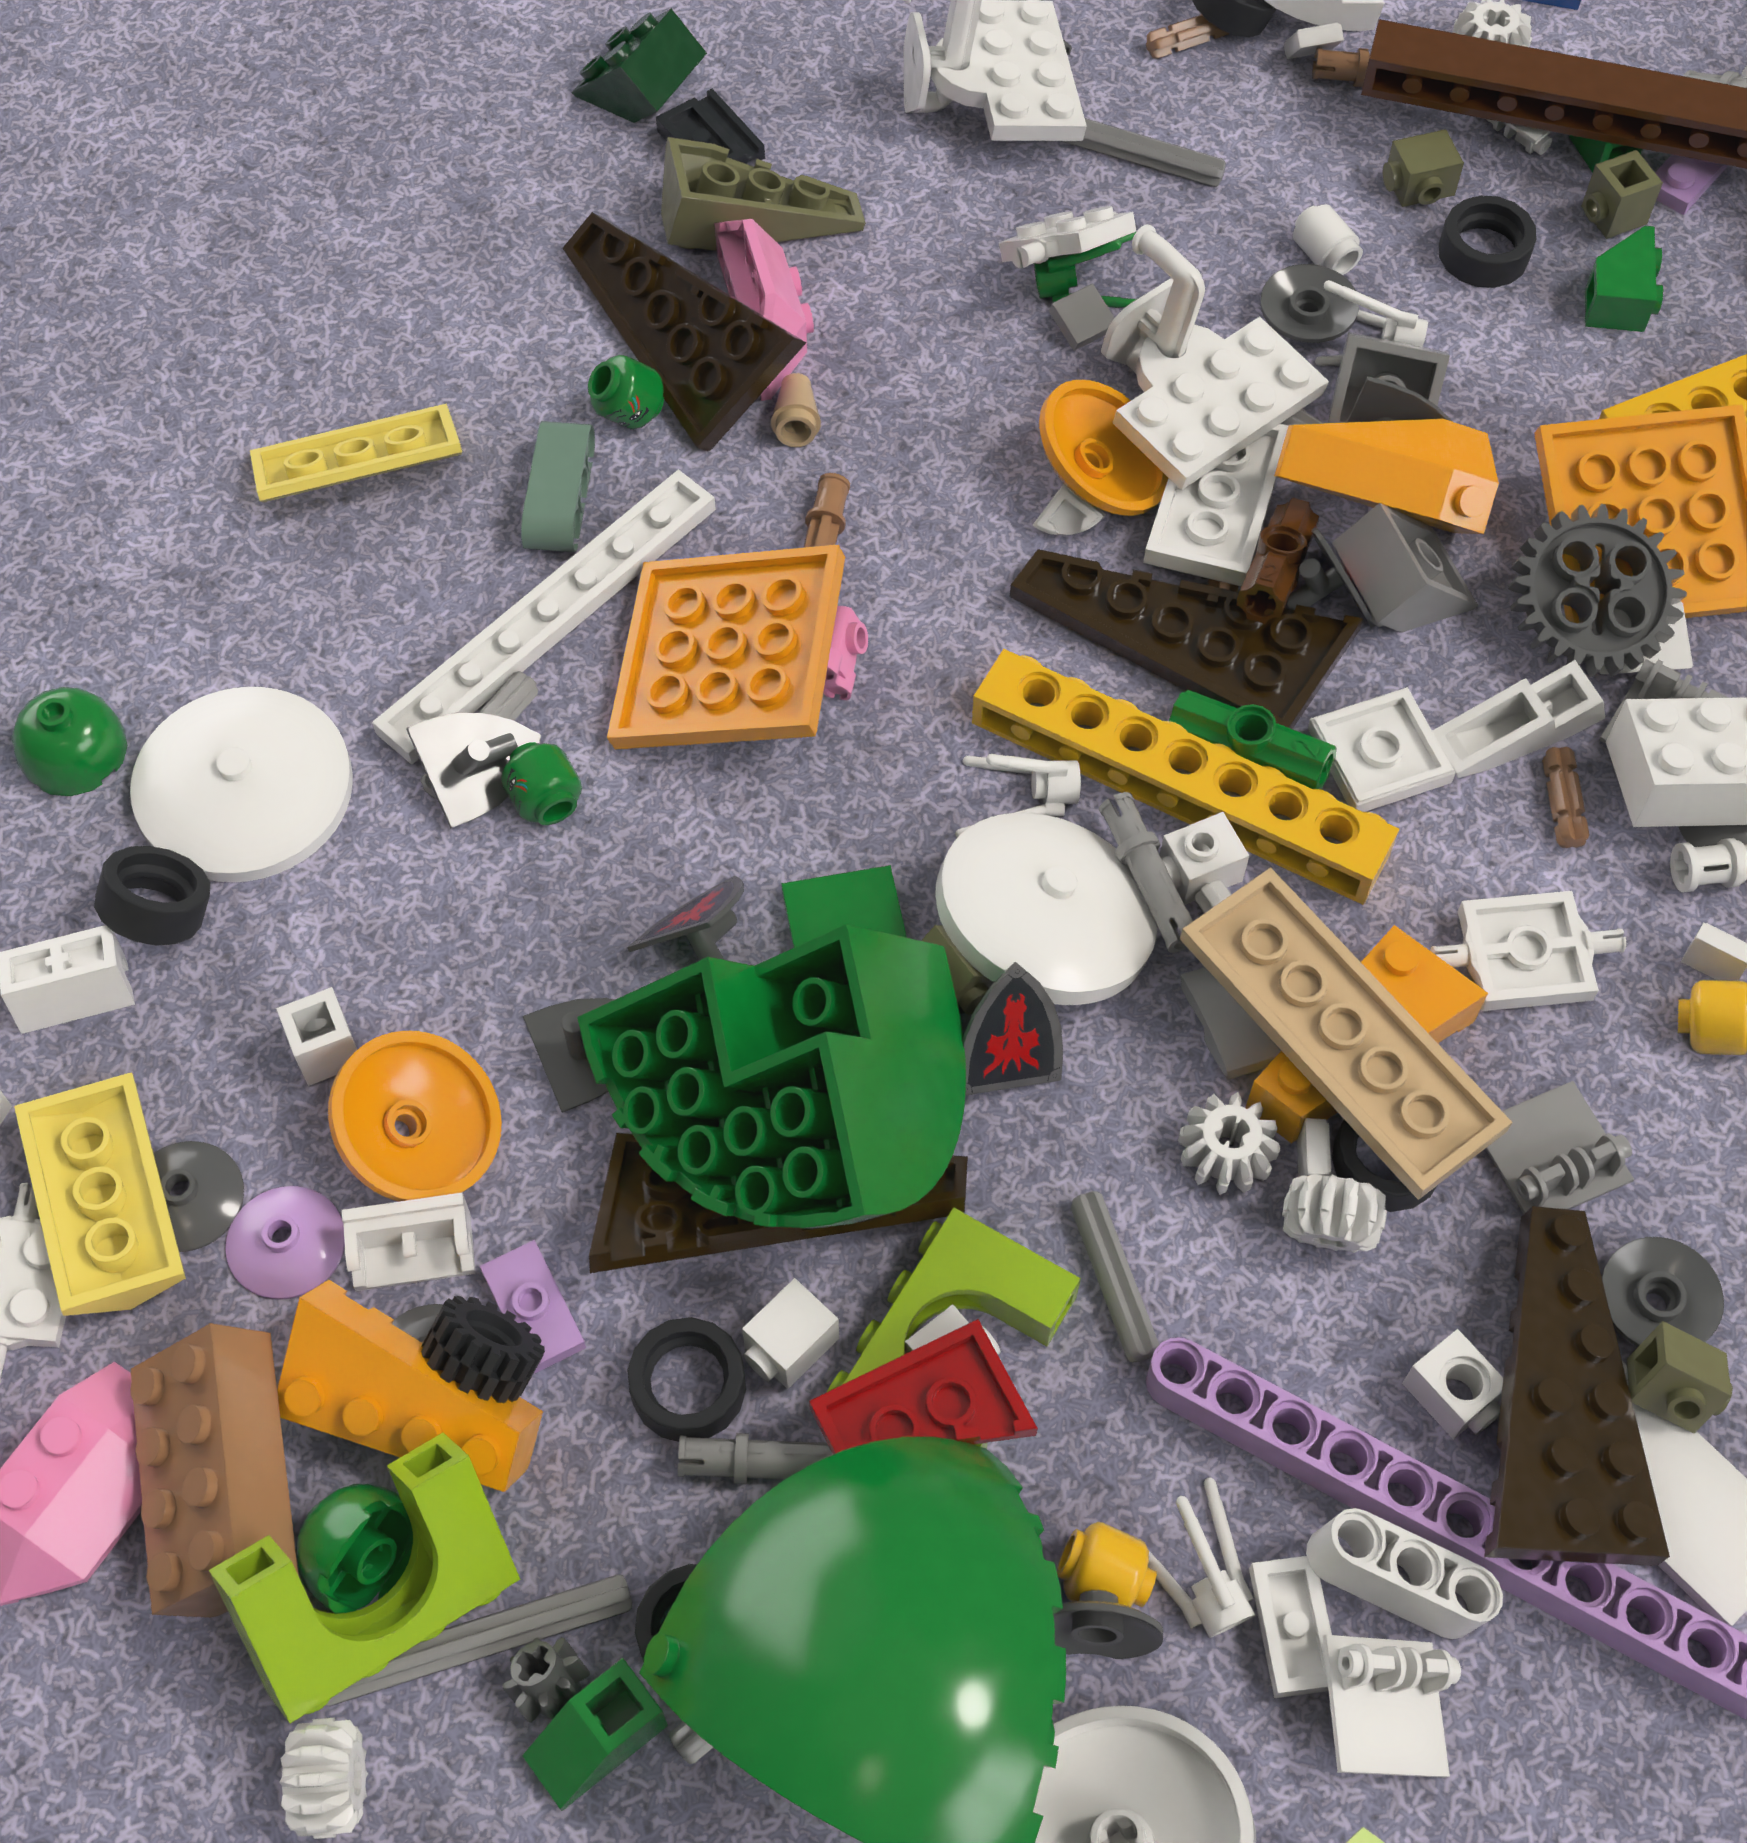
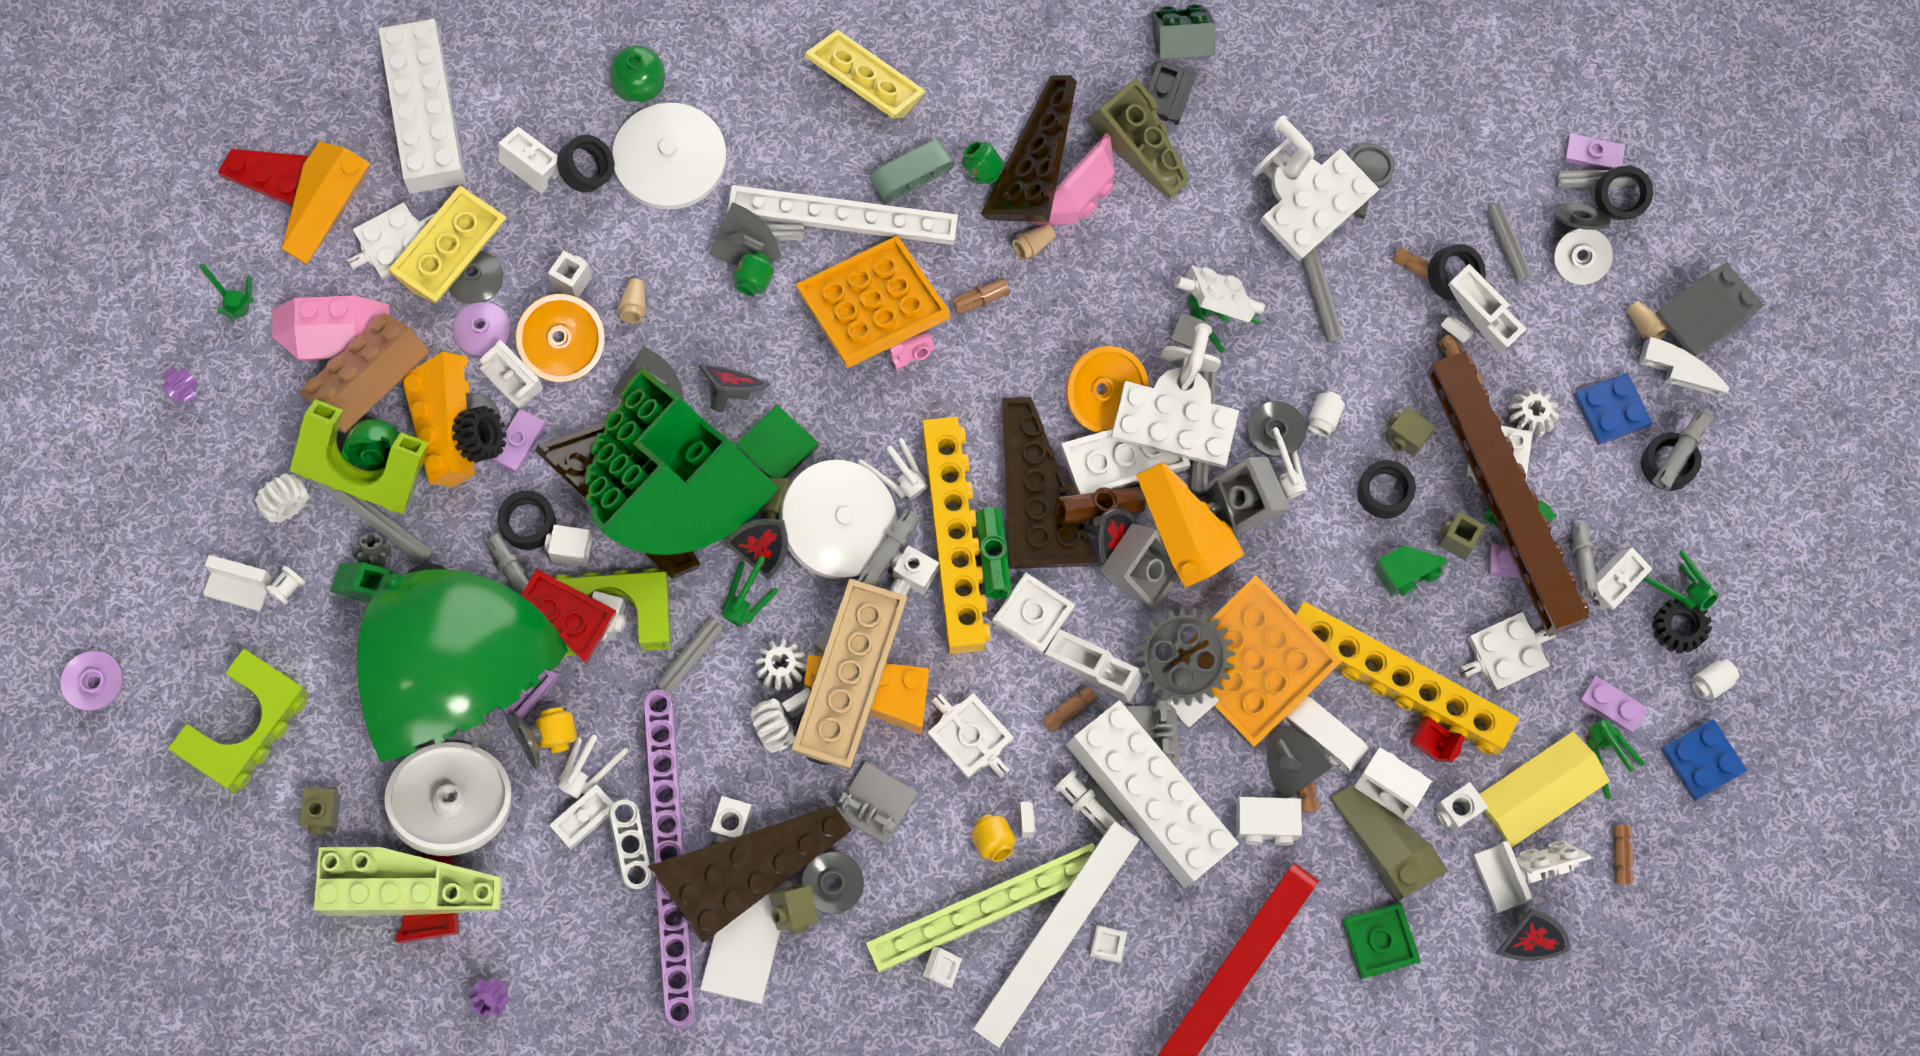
camera: 50 degrees right, 10 degrees up
(441, 979) = (633, 302): none -> tan cone
(1067, 514) = (1058, 395): white tile -> none
(1088, 1146) = (736, 608): none -> green plant
(1388, 1705) = (572, 870): white hinge -> none

